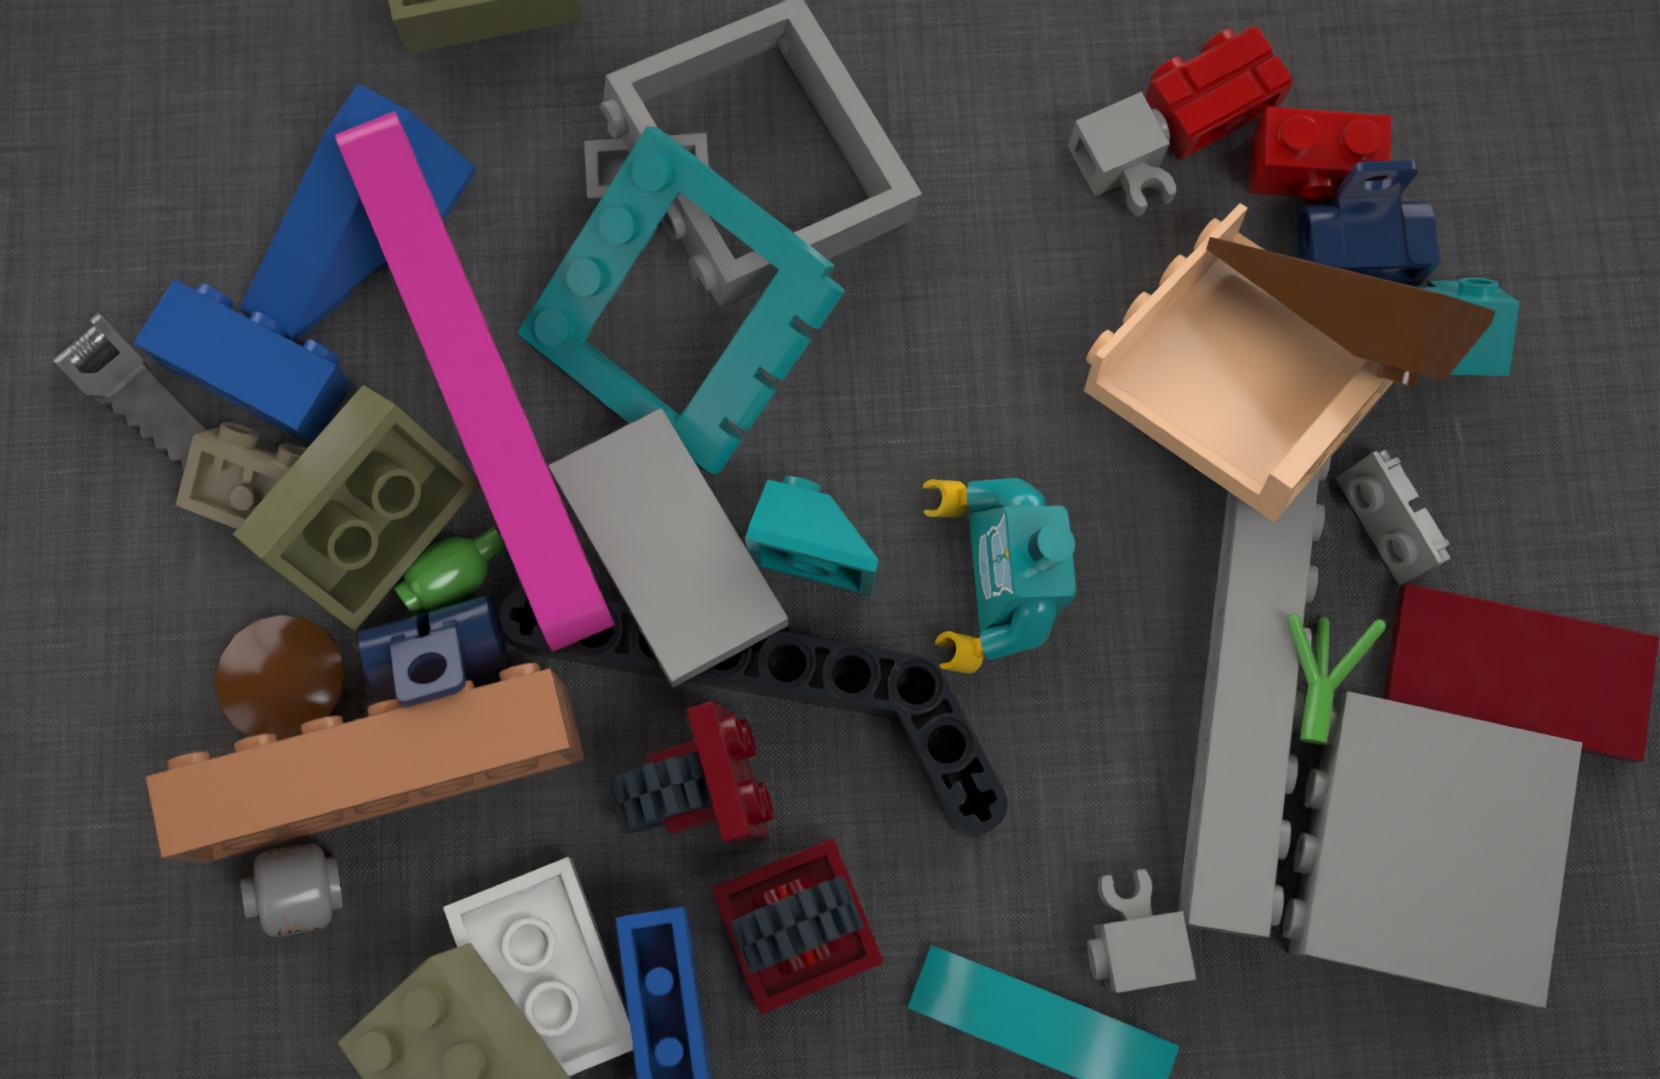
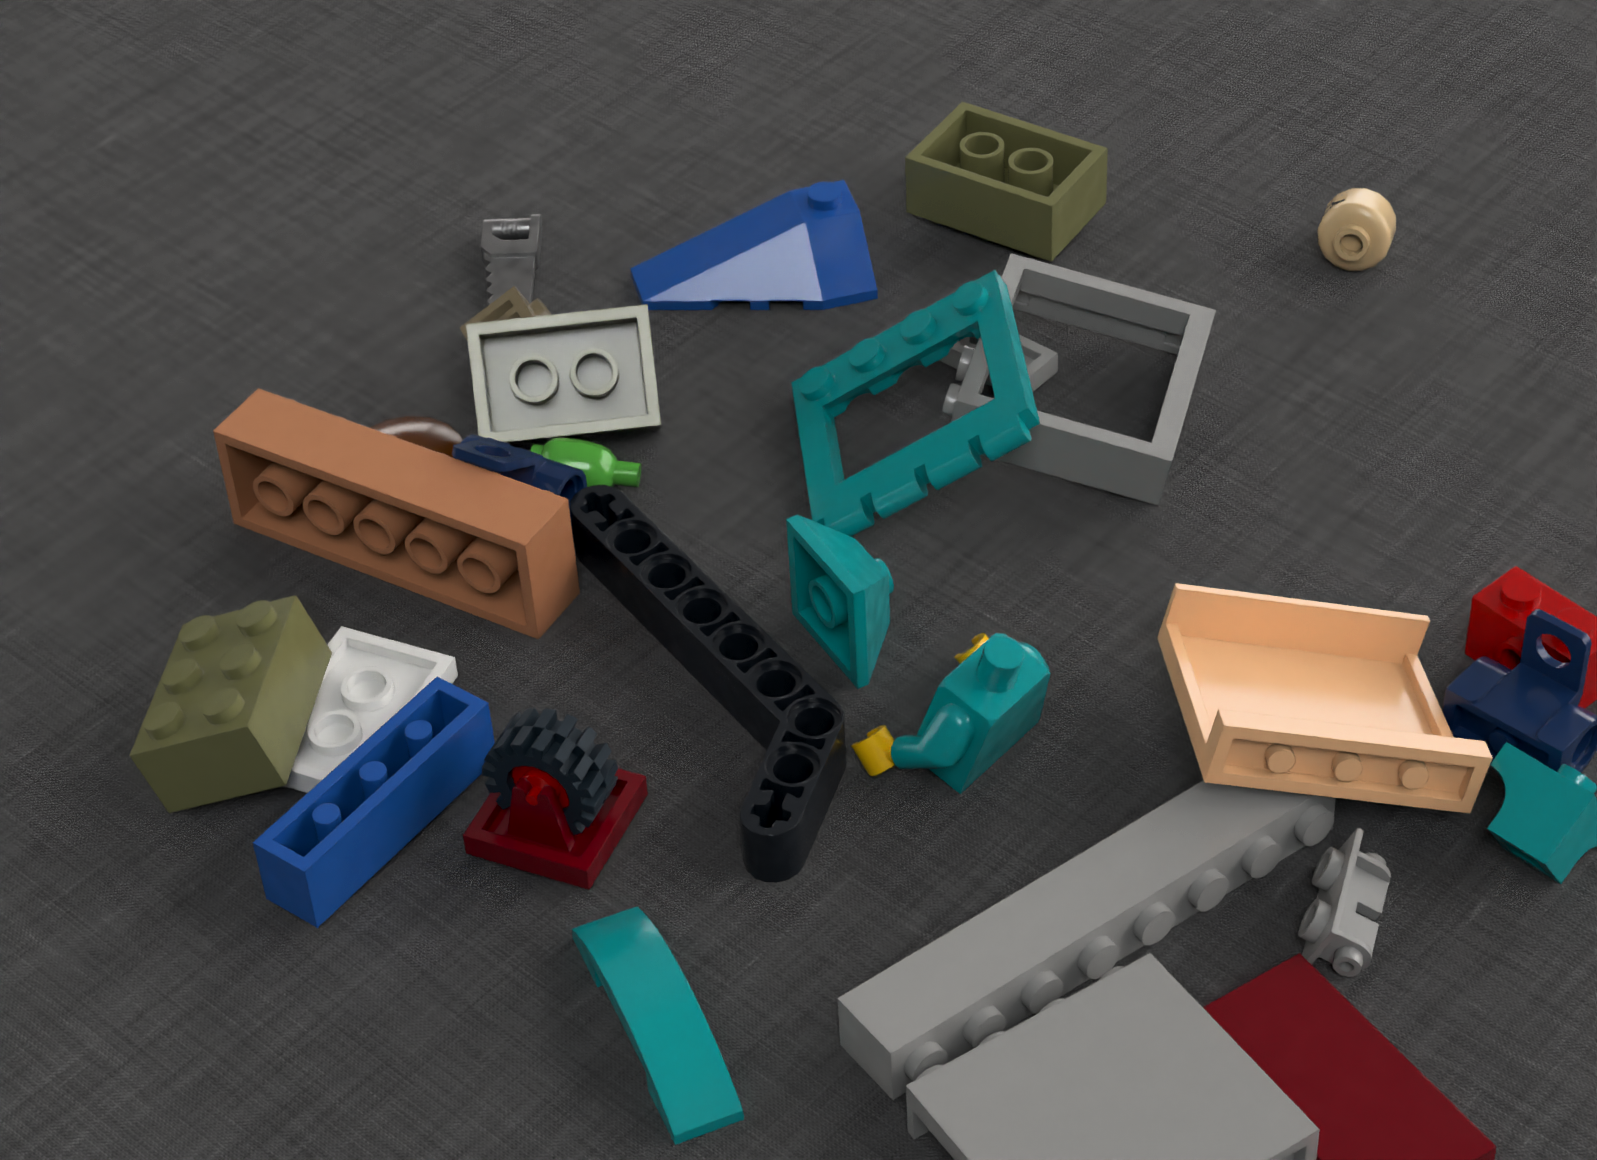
camera: 50 degrees right, 35 degrees down
(244, 359) = (592, 265): blue brick -> none
(292, 890) = (265, 553): light grey head -> none
(474, 382) = (713, 356): dark pink beam -> none
(668, 547) = (730, 528): light grey tile -> none
(698, 783) = (599, 668): dark red plate -> none
(1124, 149) = (1376, 545): light grey brick -> none
(1142, 947) = (789, 1008): light grey brick -> none
(1218, 89) = (1480, 547): red brick -> none
(1320, 684) = (1135, 938): bright green plant -> none
(1370, 317) = (1441, 691): reddish brown wedge -> none

